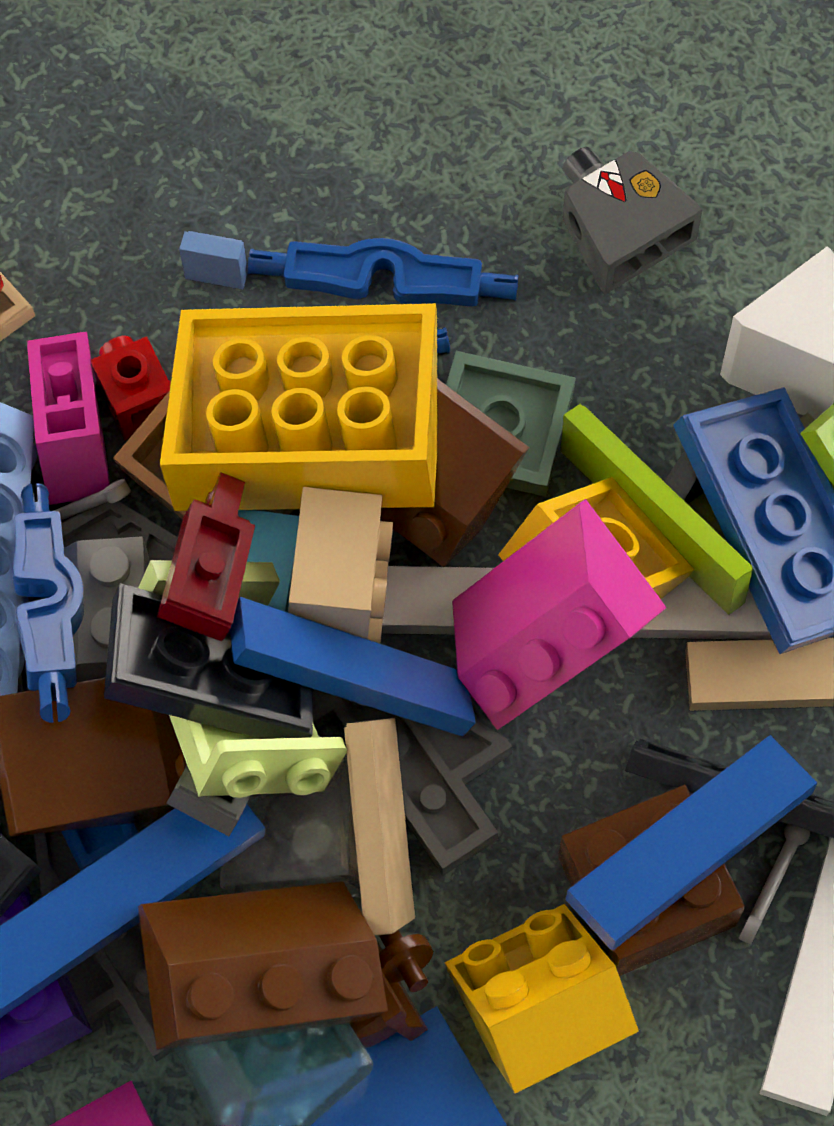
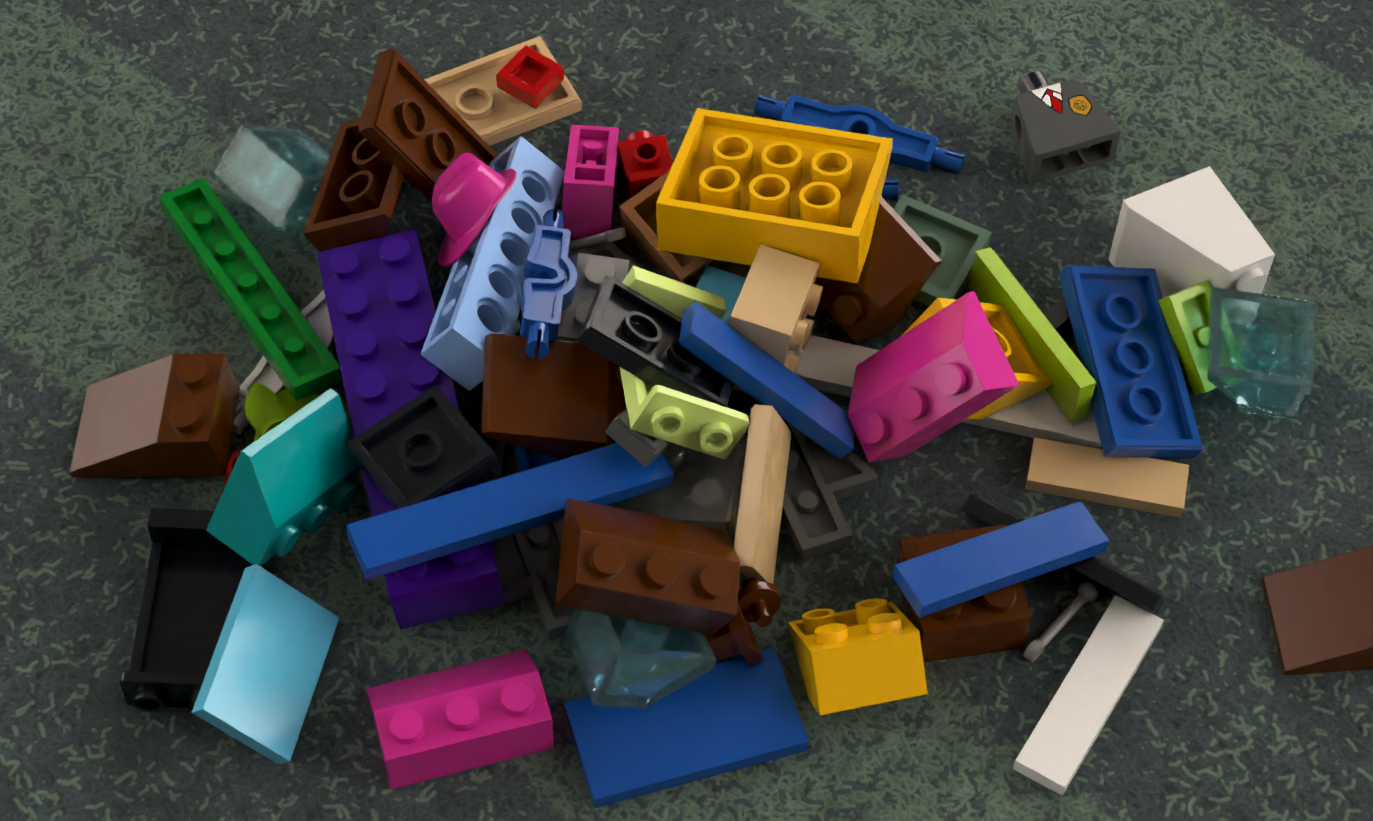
camera: 10 degrees right, 10 degrees down
(209, 562) = (676, 274): dark red hinge -> none
(213, 259) = (729, 93): medium blue tile -> none

